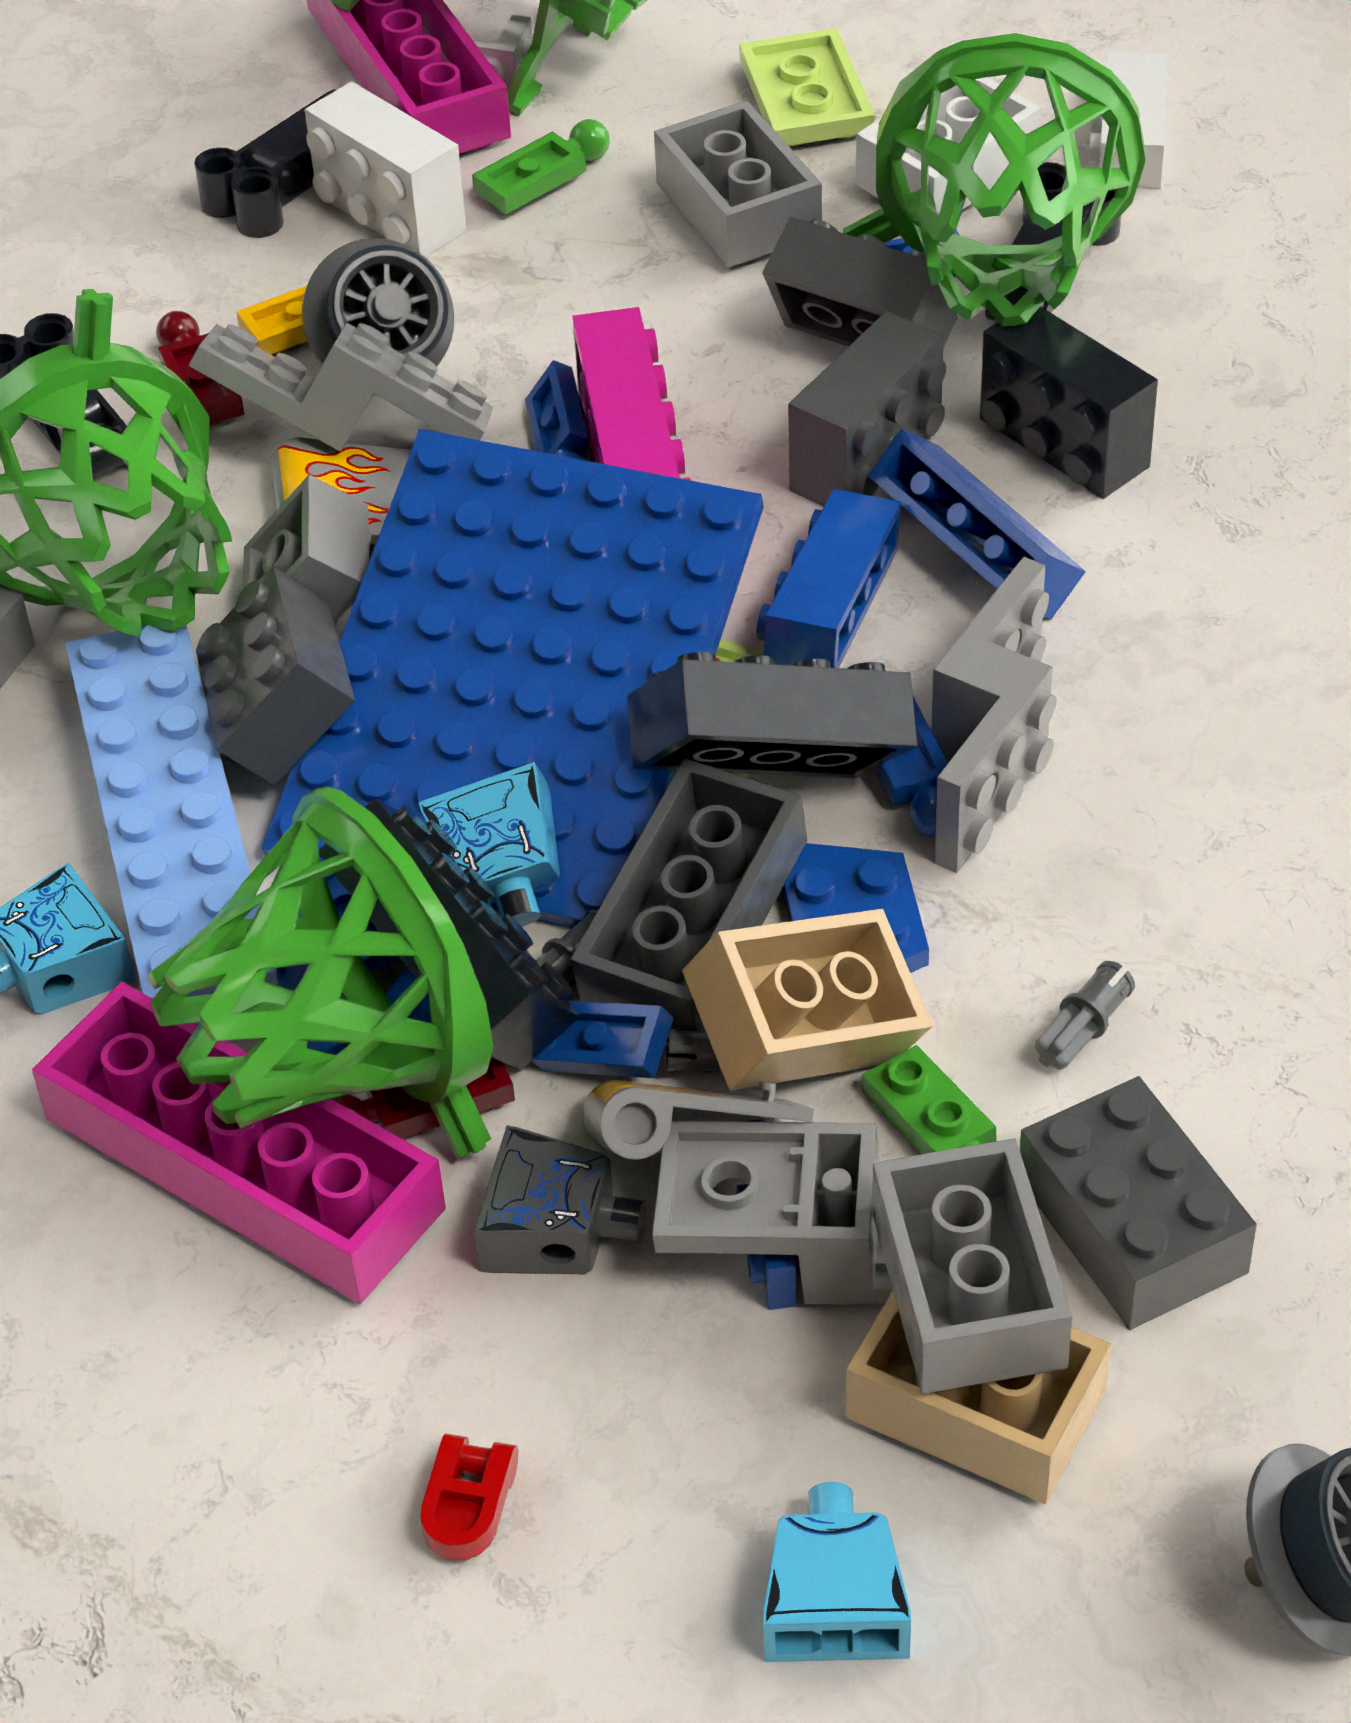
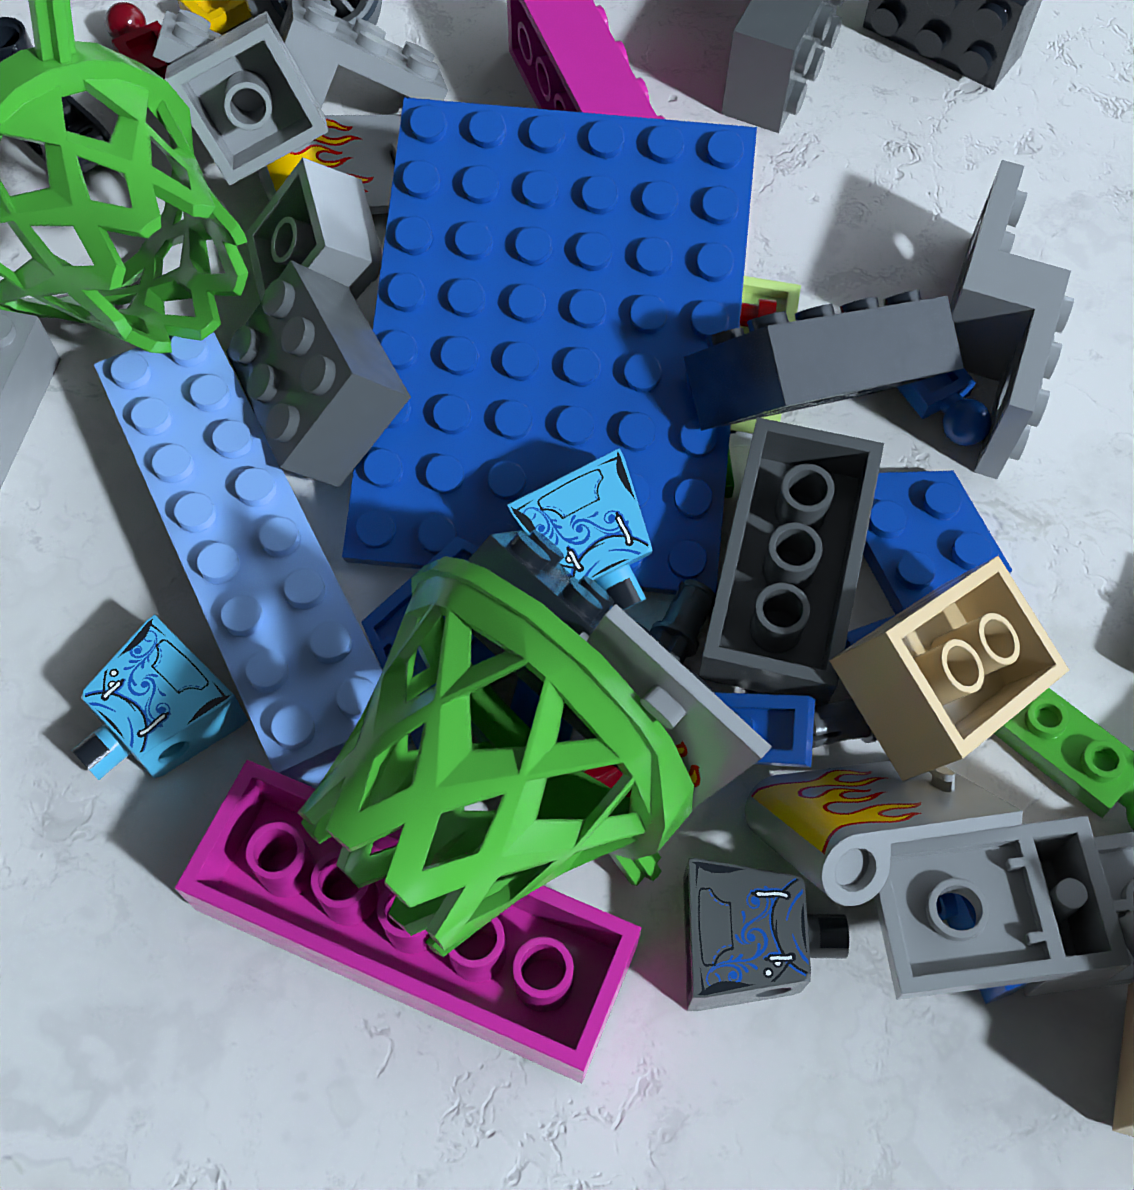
camera: 15 degrees left, 15 degrees up
(272, 415) = (247, 98): none -> light grey brick
(488, 934) = (704, 729): none -> light grey door
(557, 413) = (500, 65): blue plate -> none
(831, 579) = (805, 205): blue brick -> none
(970, 516) = (907, 124): blue brick -> none

